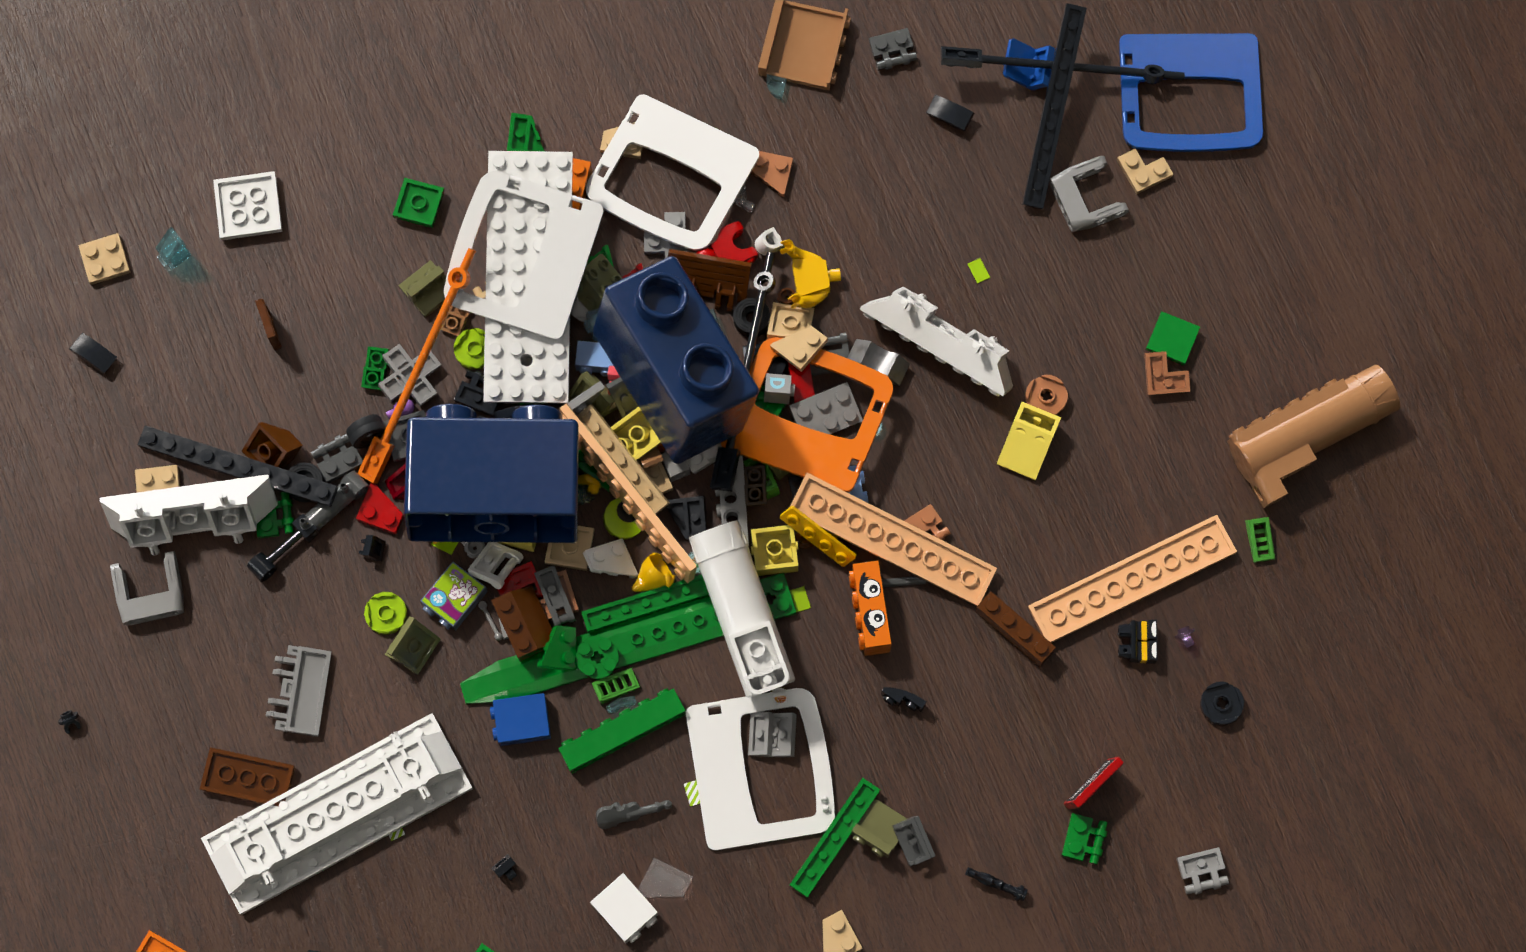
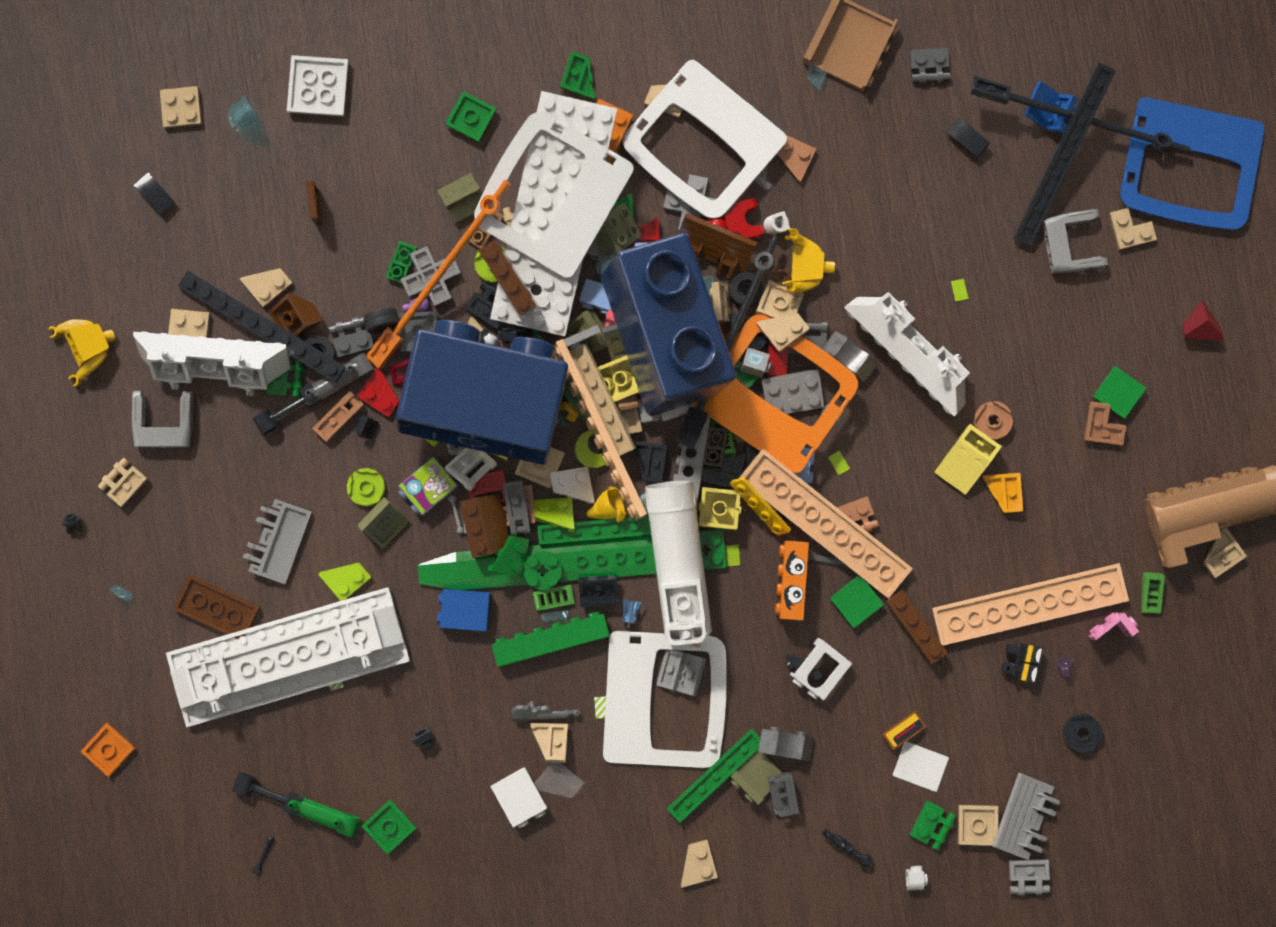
camera: 15 degrees right, 10 degrees up
(49, 524) = (87, 345): none -> yellow torso
(122, 668) = (126, 486): none -> tan plate
(135, 783) = (119, 591): none -> clear light blue tile
(234, 423) = (267, 285): none -> tan wing
(339, 544) = (337, 417): none -> nougat plate
(383, 716) = (345, 579): none -> lime wing
(494, 351) = (508, 277): none -> reddish brown brick
(597, 593) = (555, 512): none -> lime wing
(647, 839) = (552, 741): none -> tan wing
(663, 666) = (598, 591): none -> black bracket
(702, 681) = (630, 611): none -> flat silver piece
(728, 327) = (720, 296): none -> tan plate
(769, 515) = (722, 476): none -> black wing
(892, 476) = (839, 462): none -> lime sticker
(903, 709) = (802, 673): none -> white panel
(904, 785) = (786, 744): none -> flat silver brick
(945, 617) = (856, 601): none -> green tile
(1028, 743) = (903, 730): none -> slope
(1054, 778) = (920, 766): none -> white sticker
(1078, 466) = (1006, 490): none -> light orange wing
(1080, 900) = (916, 878): none -> white plate
(1093, 783) = (952, 780): red tile -> none
(1133, 827) = (977, 824): none -> tan plate
(1178, 810) = (1022, 816): none -> light grey hinge
(1236, 574) = (1126, 625): none -> bright pink bracket
(1243, 250) = (1202, 325): none -> dark red slope
(1325, 481) = (1223, 554): none -> tan wing

